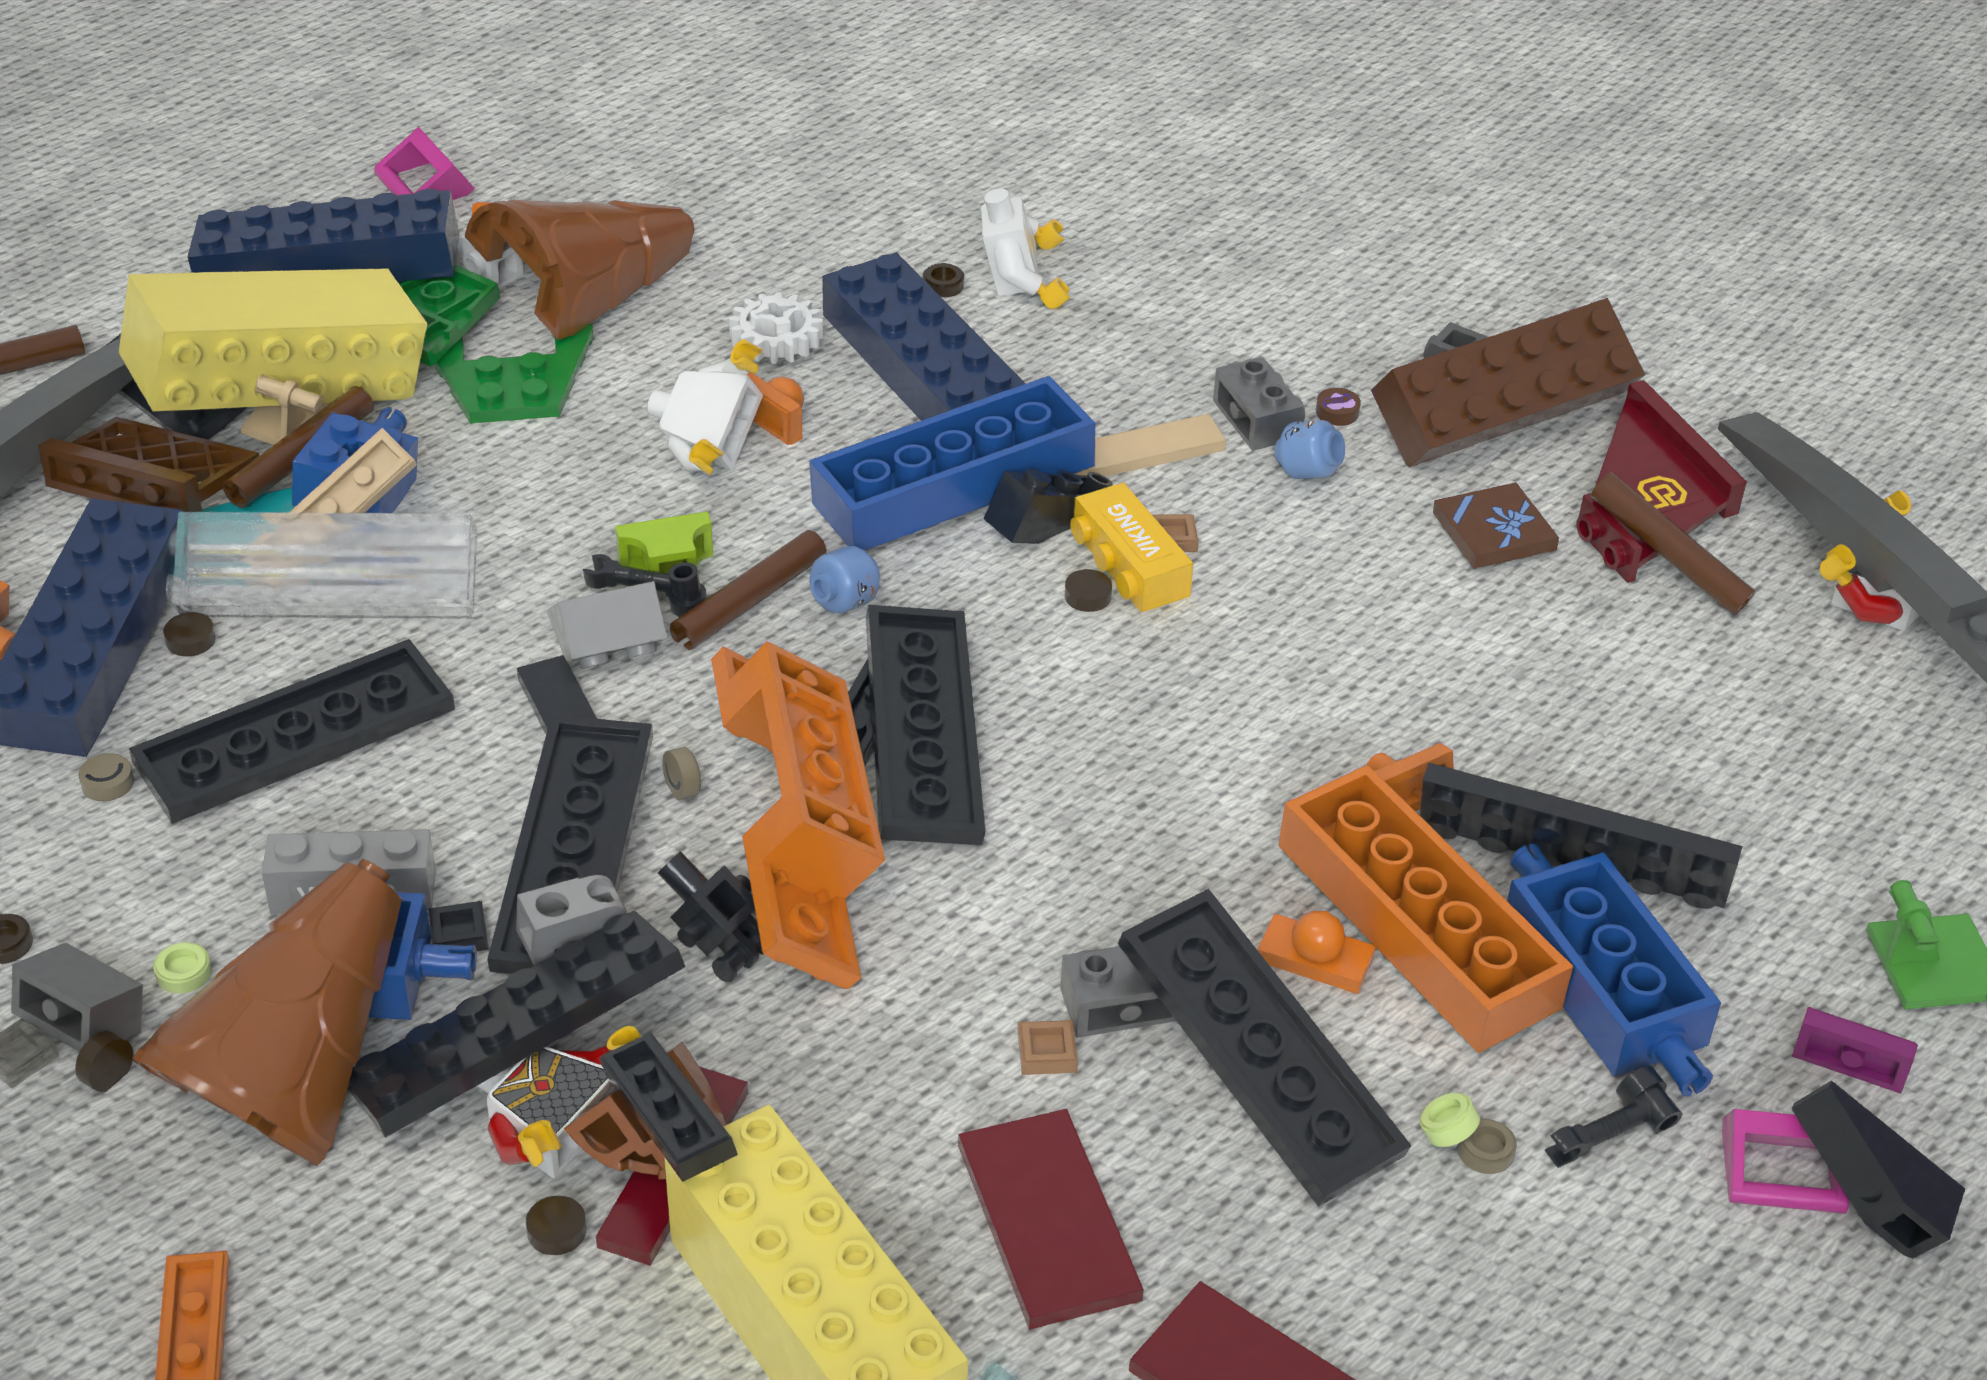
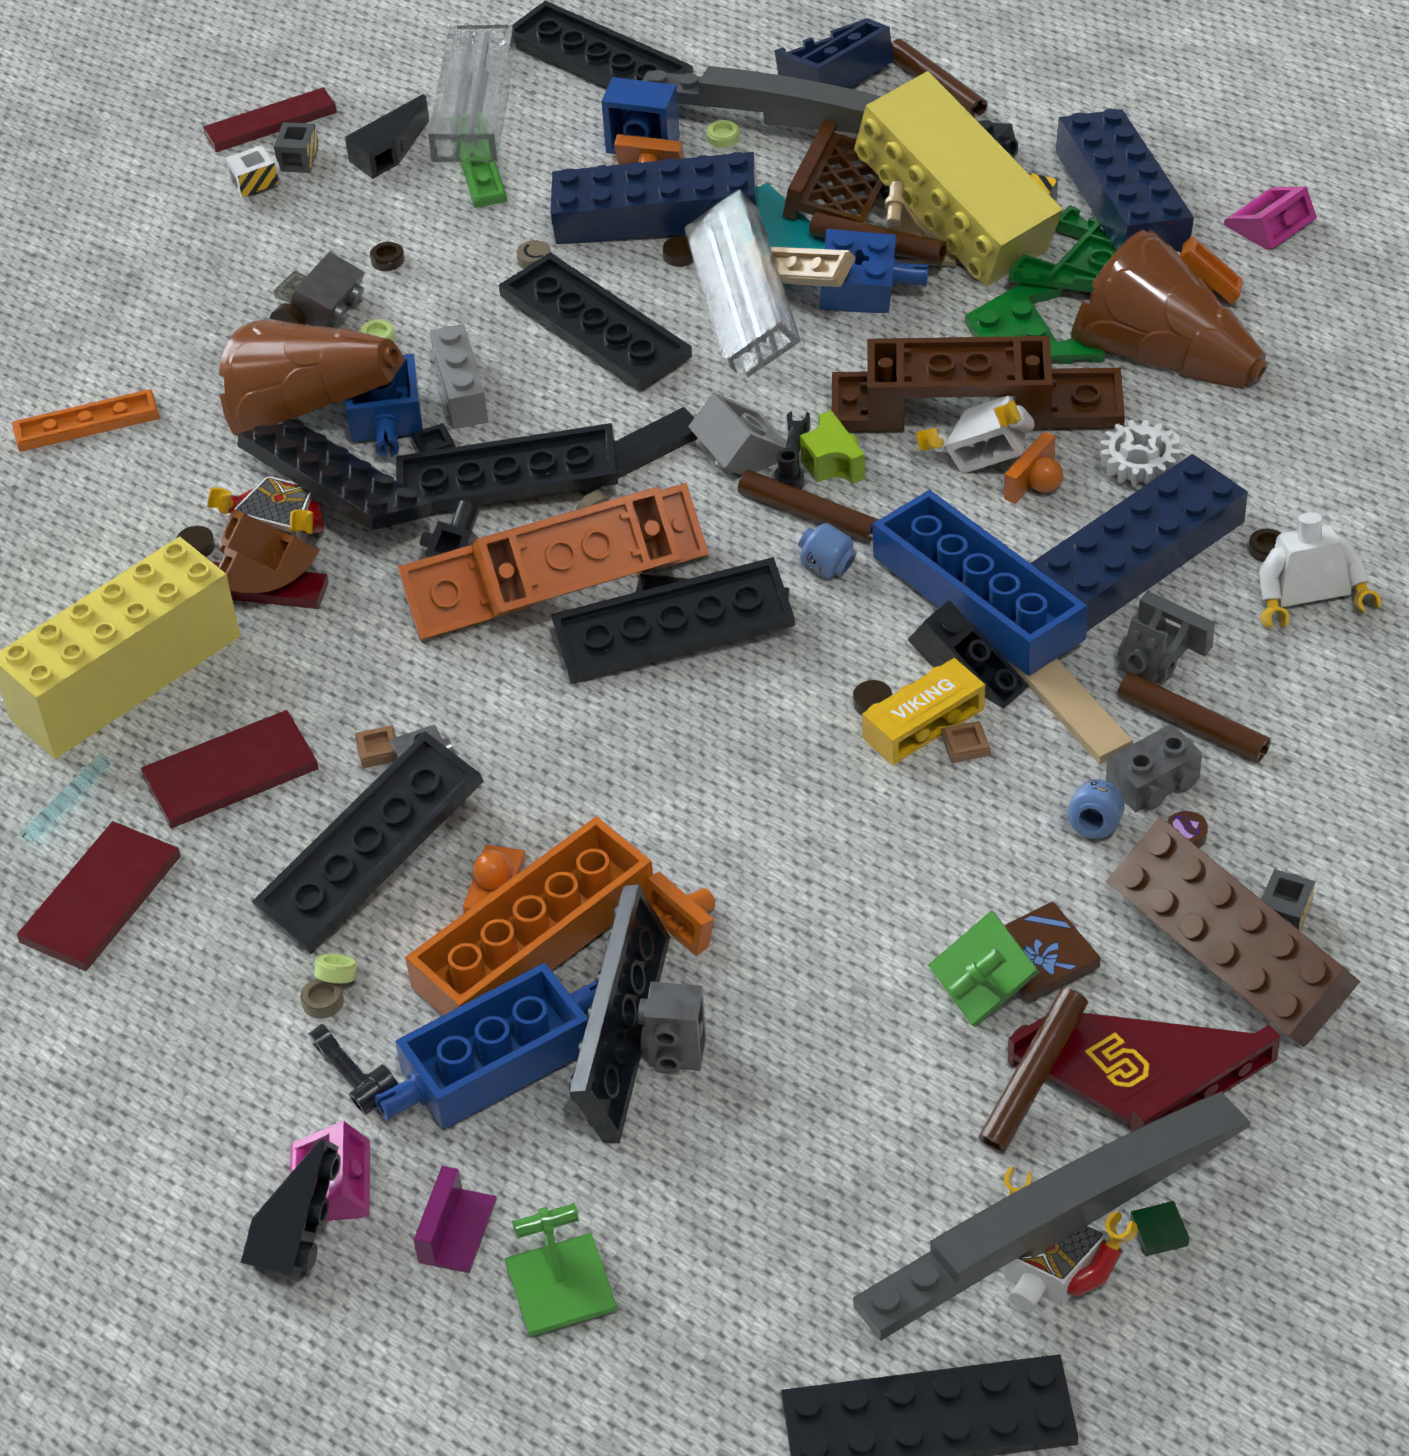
camera: 85 degrees right, 5 degrees up
(565, 913) = (421, 473): light grey leg -> none
(595, 441) = (975, 369): none -> reddish brown bracket
(668, 1107) = (223, 531): black tile -> none
(1083, 370) = (1156, 645): none -> dark grey tile
(1183, 370) = (1194, 717): none -> reddish brown piece
(1528, 558) = (983, 968): none -> bright green plate
(1610, 774) = (673, 1026): none -> flat silver brick

